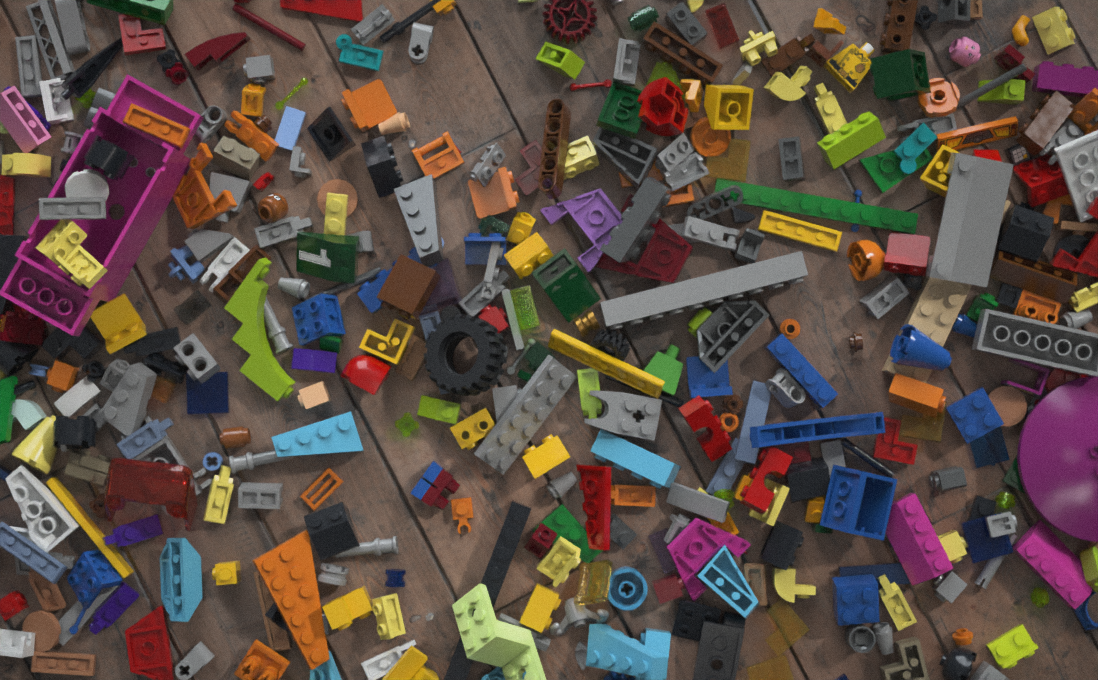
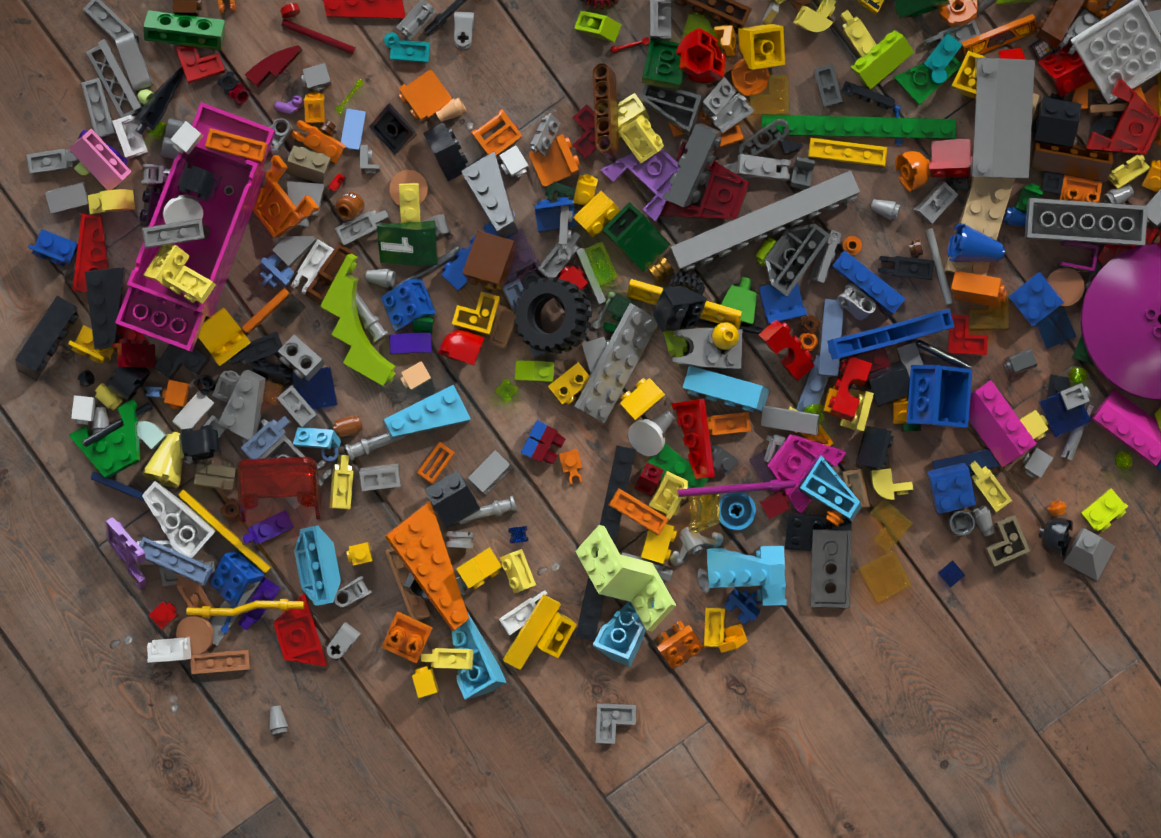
camera: 10 degrees left, 0 degrees up
(57, 609) = (207, 611): none -> yellow bar
(77, 60) = (144, 95): none -> yellowish green hinge
(100, 109) = (186, 138): none -> white brick
(168, 304) = (266, 311): none -> orange tile
(184, 409) = (297, 407): none -> light grey hinge
(198, 445) = (316, 438): none -> medium azure bracket
(214, 610) = (353, 592): none -> light grey piece
(227, 96) = (290, 107): none -> medium lavender arm
(376, 508) = (490, 472): none -> light grey hinge
(450, 188) = (513, 162): none -> white brick
(523, 575) = (638, 511): none -> orange tile
(544, 497) = (646, 437): none -> white tile
(587, 184) = (641, 139): none -> light yellow bracket
(598, 368) = (678, 308): none -> black slope
(643, 404) = (725, 336): none -> yellow brick
(670, 569) = (773, 485): none -> magenta bar
(729, 613) = (834, 517): none -> orange plate
(757, 340) = (824, 257): none -> light grey hinge
(830, 174) = (866, 95): none -> black hinge
(830, 295) = (887, 209): none -> light grey cone
(845, 361) = (908, 267): none -> black hinge
(877, 364) = (939, 266): none -> light grey bar

